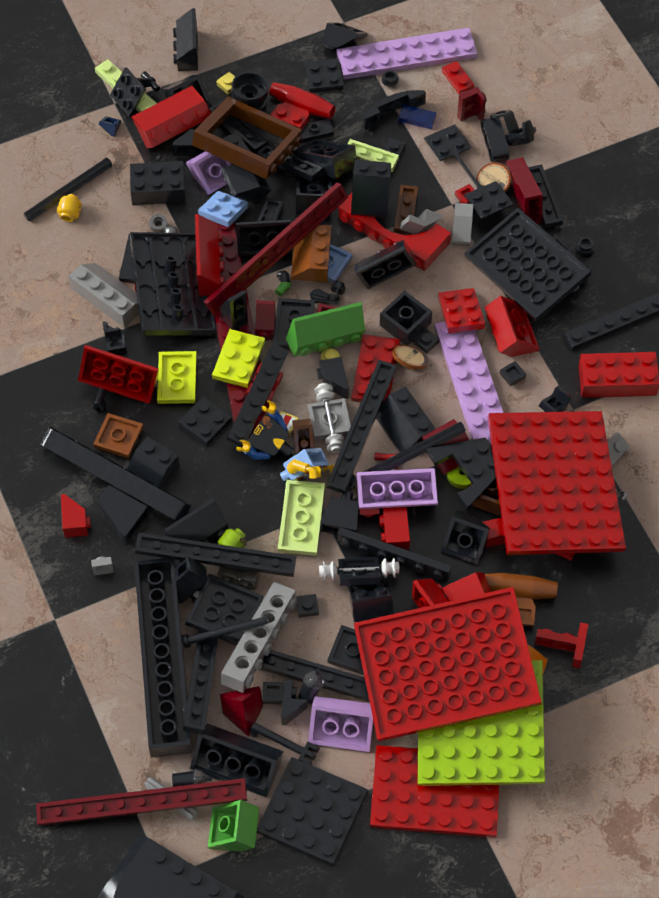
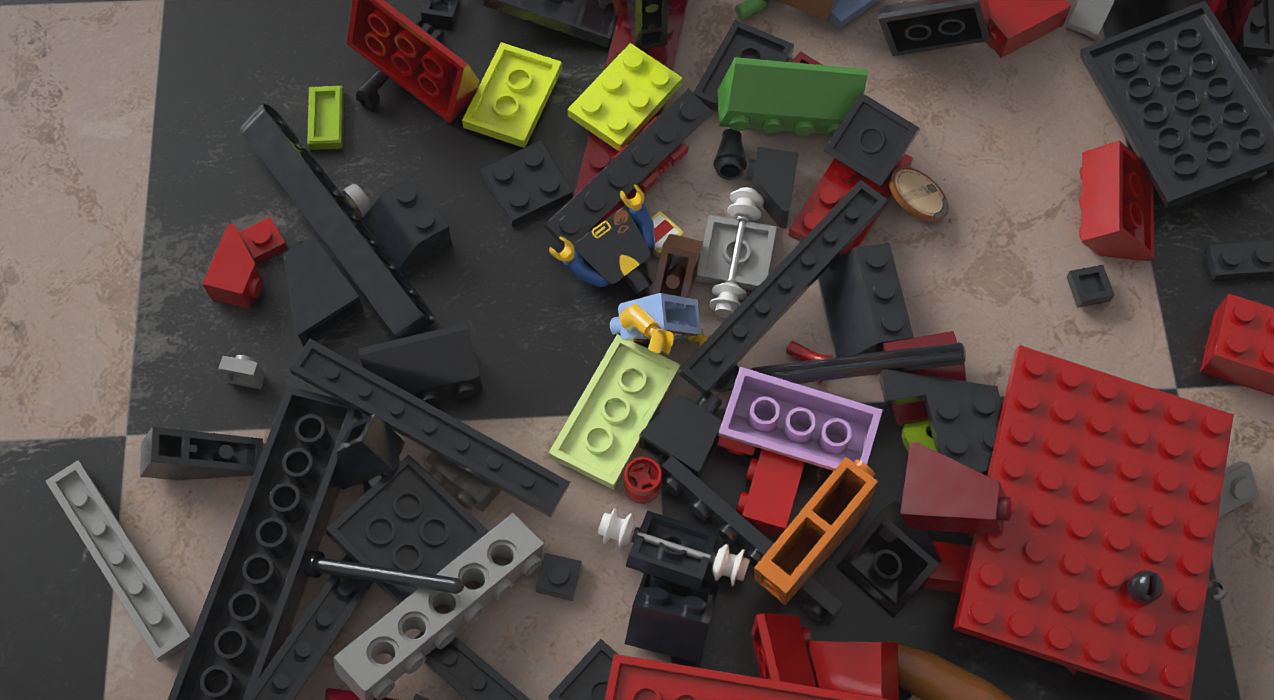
camera: 20 degrees right, 5 degrees up
(80, 496) = (263, 240): none -> red plate
(81, 423) = (325, 117): none -> lime tile
(84, 676) = (119, 561): none -> light grey plate
(99, 613) = (197, 455): none -> black slope
(118, 435) = (373, 157): dark orange plate -> none
(121, 459) = (357, 200): none -> light grey tile
(233, 538) = (477, 409): lime head -> none
(265, 319) = (696, 46): dark red slope -> none
(305, 370) = (730, 157): none -> black cone
(320, 296) = (806, 40): black piece -> none
(329, 353) = (782, 141): light yellow plate -> none
(329, 540) = (644, 472): none -> red wheel
(376, 337) = (871, 139): none -> black plate
(405, 318) = (946, 124): black brick -> none
(426, 340) = (957, 176): black plate -> none
(426, 532) = (817, 530): none -> orange slope
(461, 310) = (1039, 145): red plate -> none
(470, 378) = (1011, 263): lavender plate -> none
(482, 493) = (950, 496): none -> dark red slope
(557, 401) = (1151, 365): black bracket -> none
(583, 504) = (1139, 585): none -> black hinge

